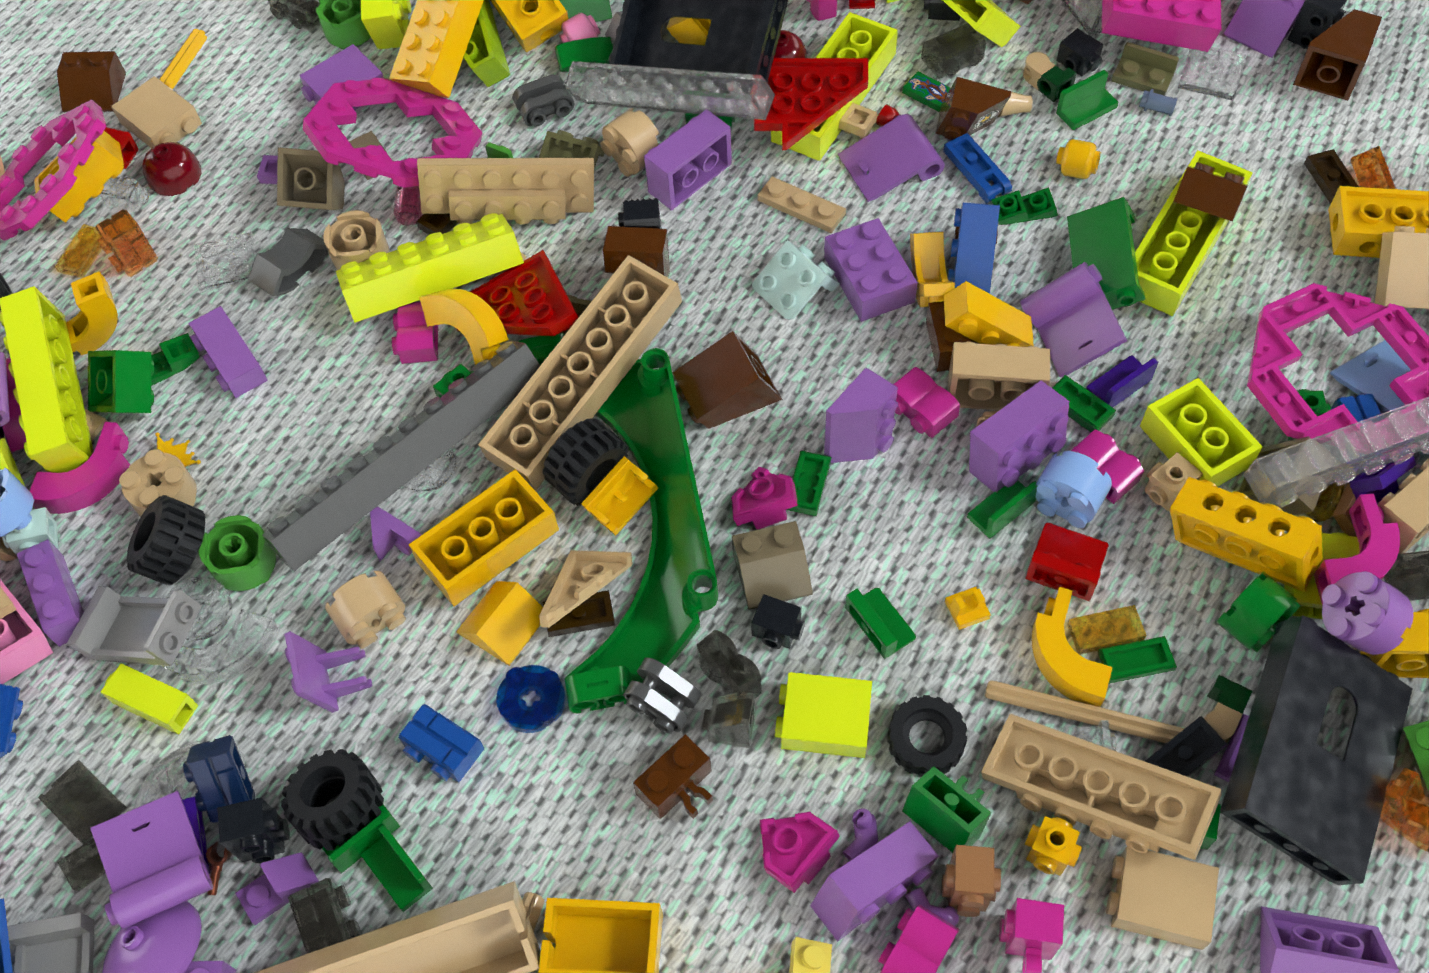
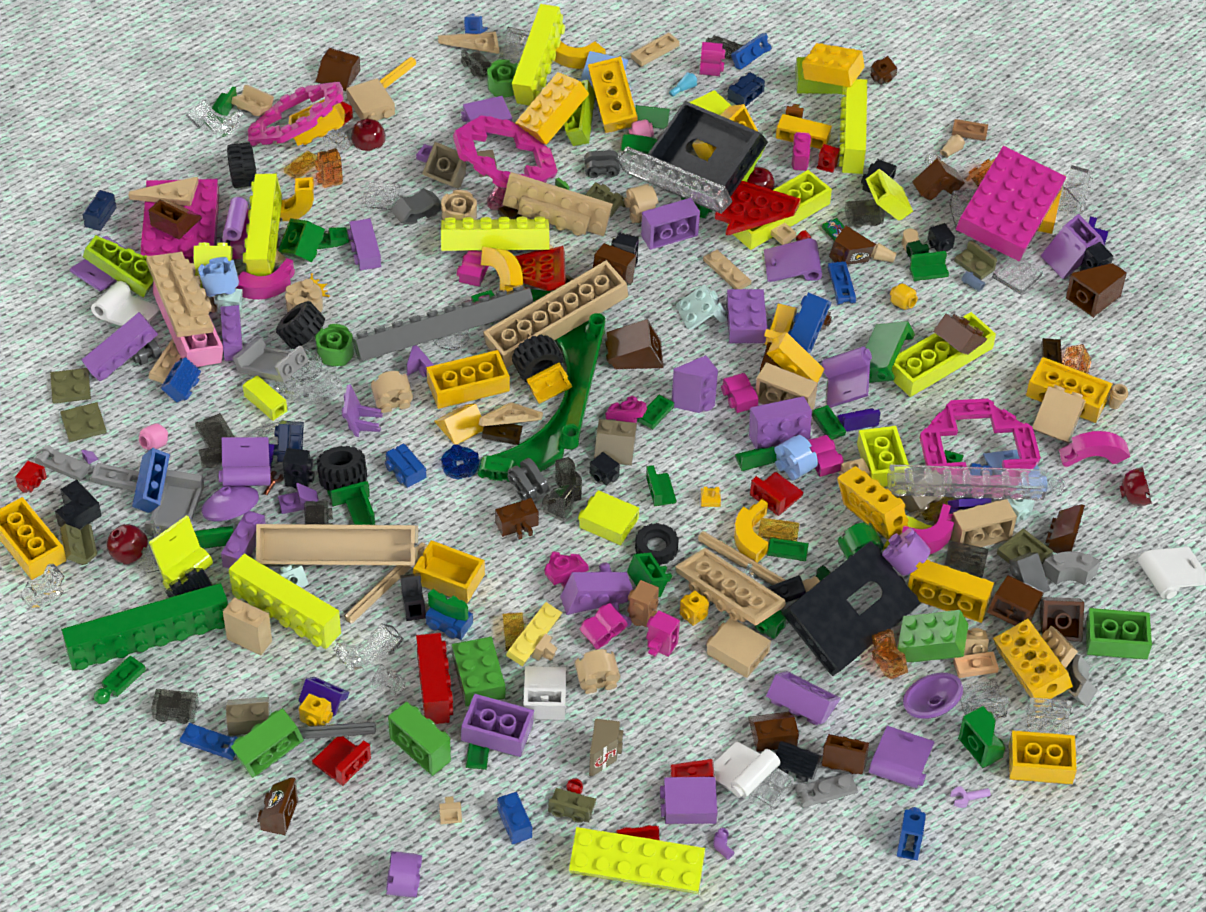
camera: 15 degrees right, 10 degrees down
(1025, 208) = (852, 312): green slope -> none

